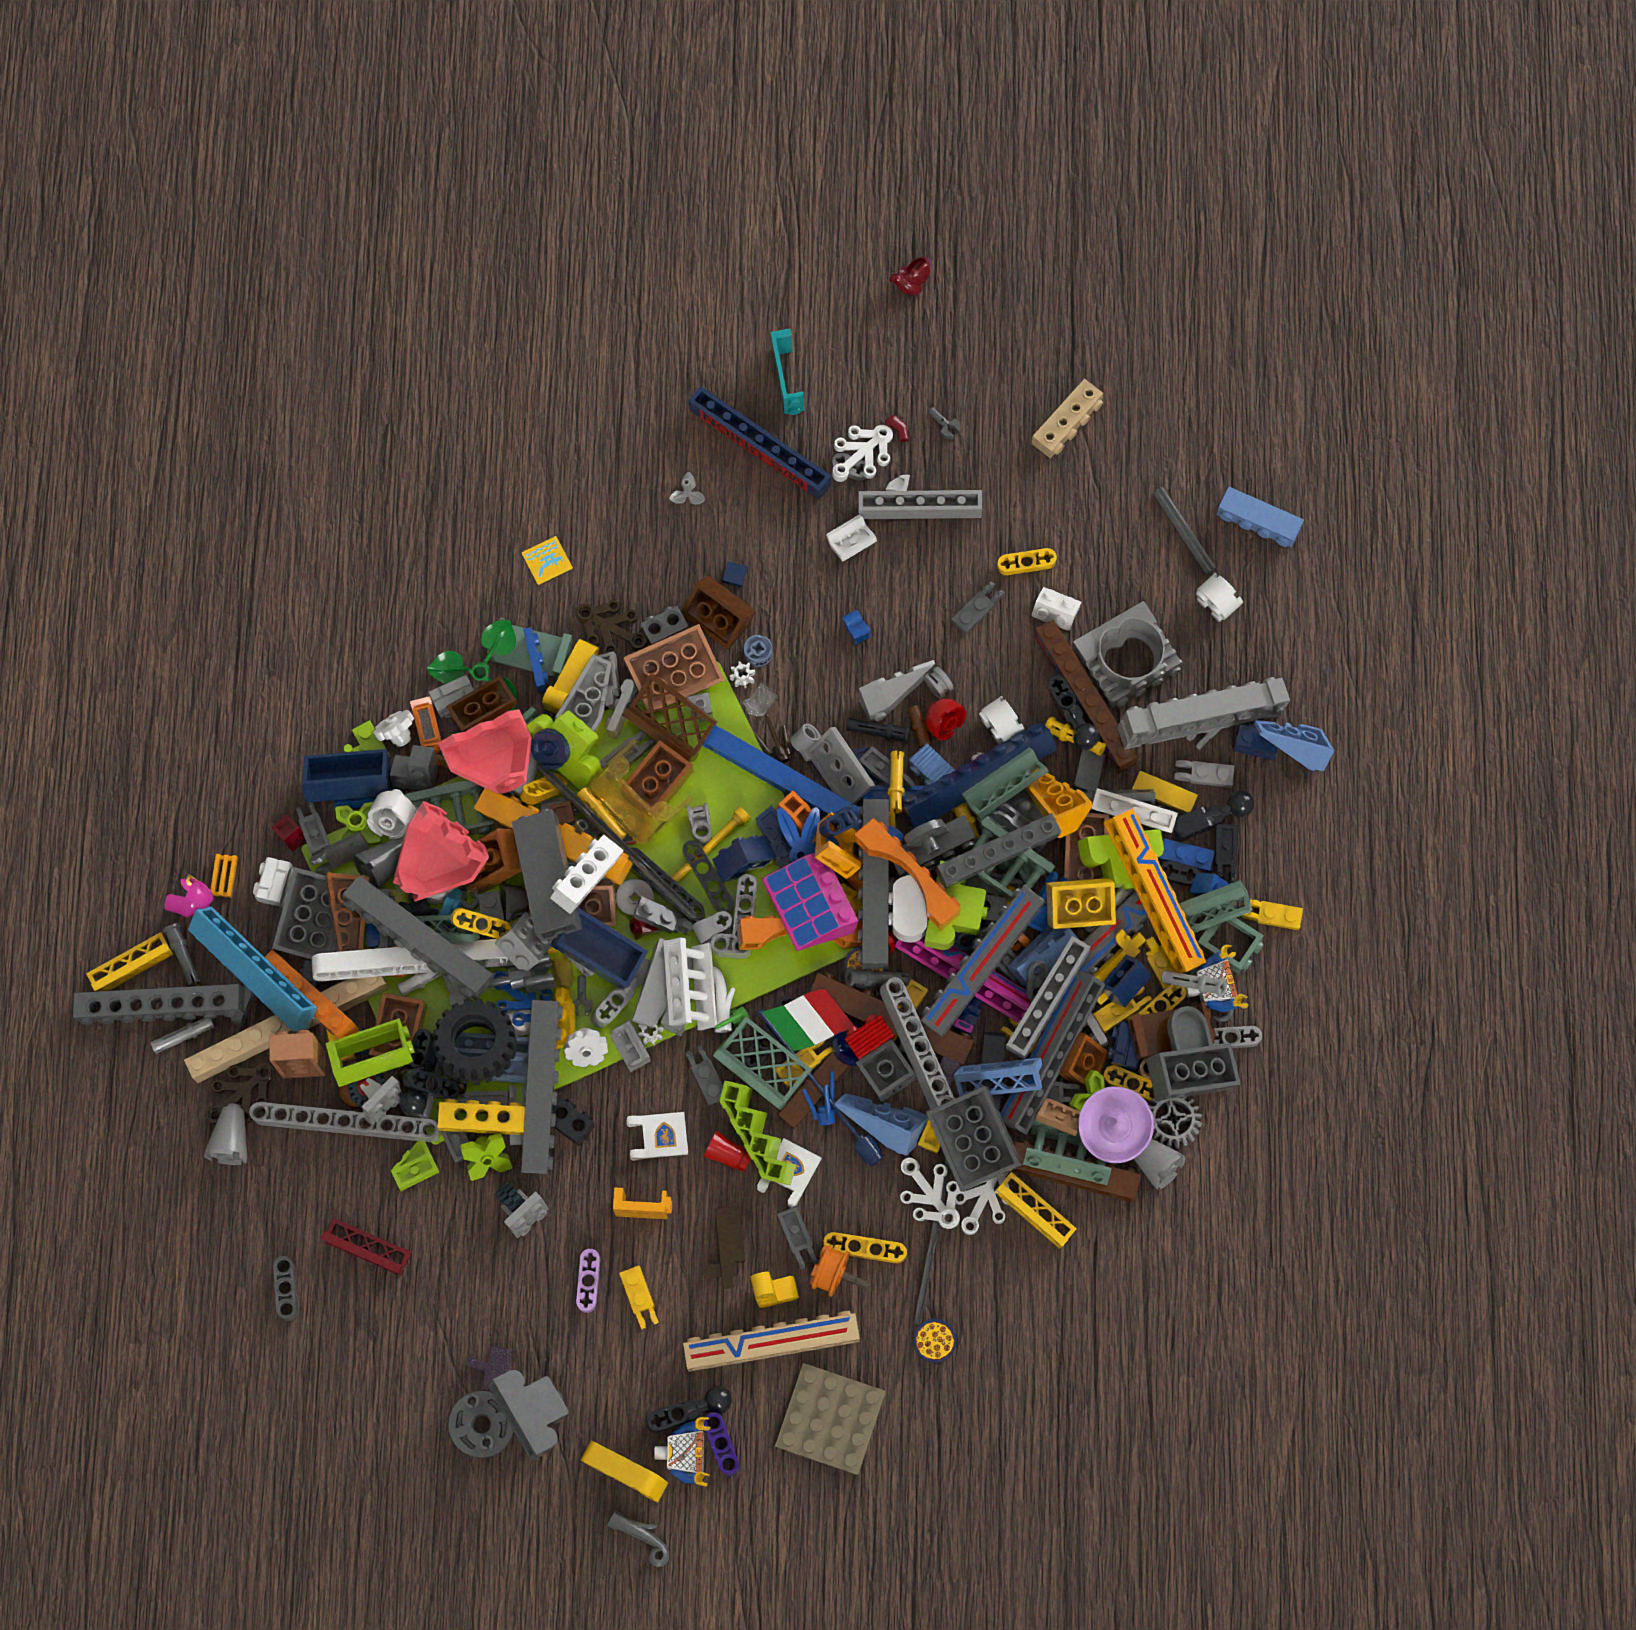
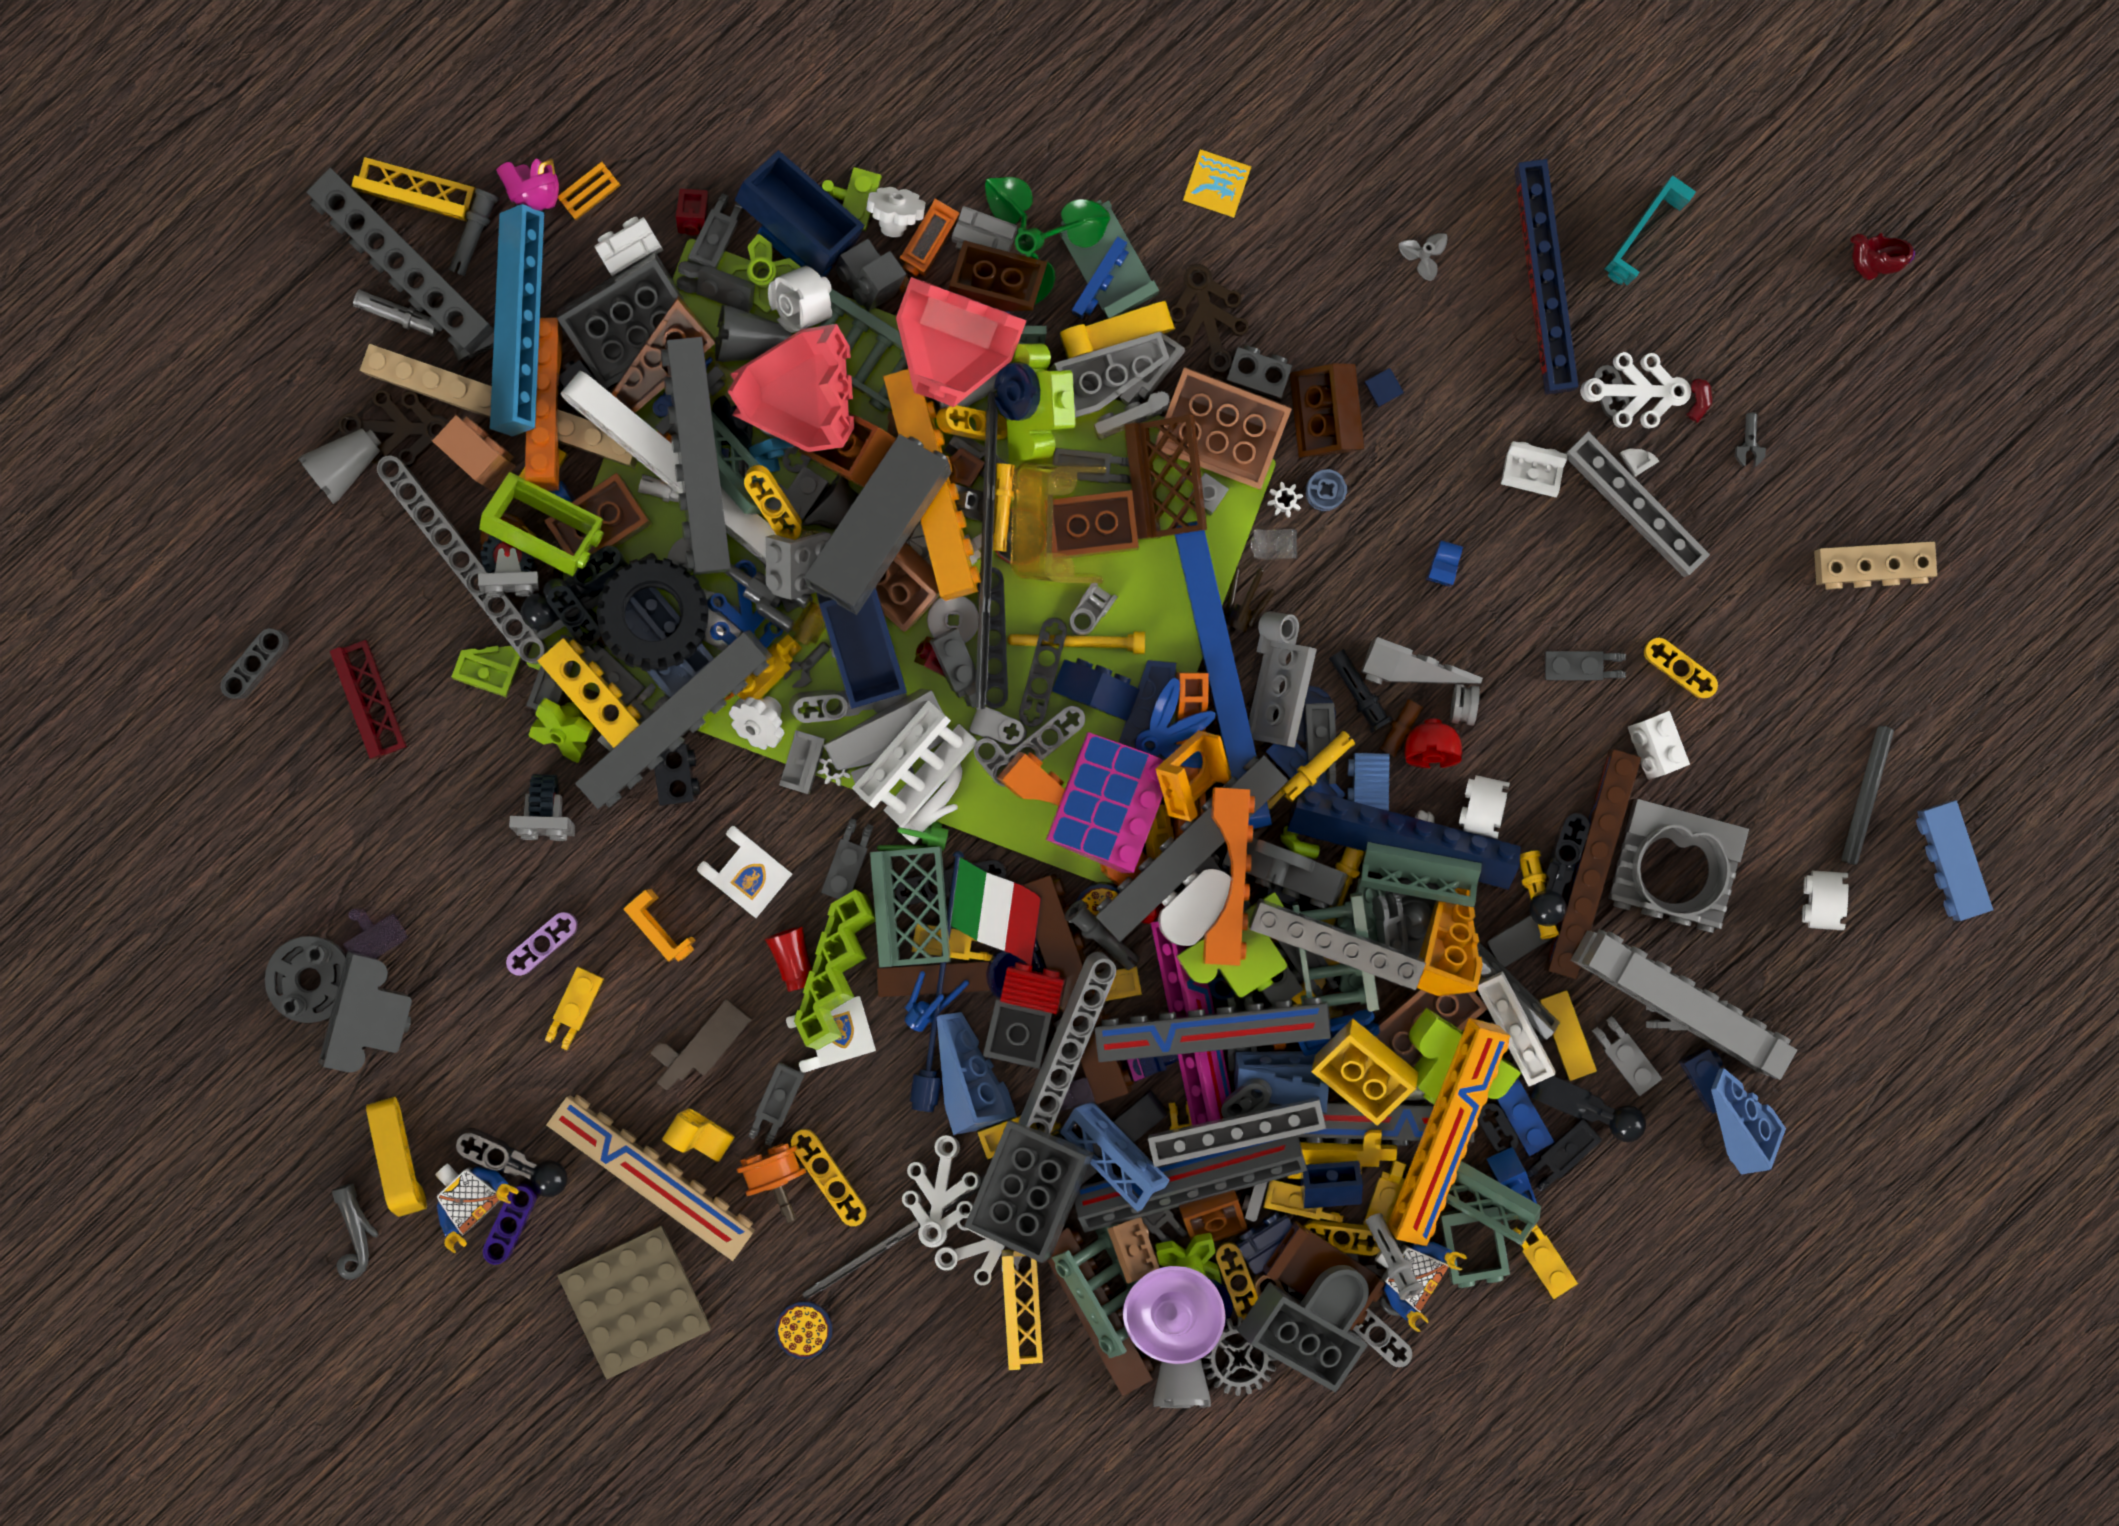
camera: 40 degrees right, 15 degrees up
(570, 897) = (956, 566): white brick -> none
(842, 821) = (1221, 759): dark blue piece -> none

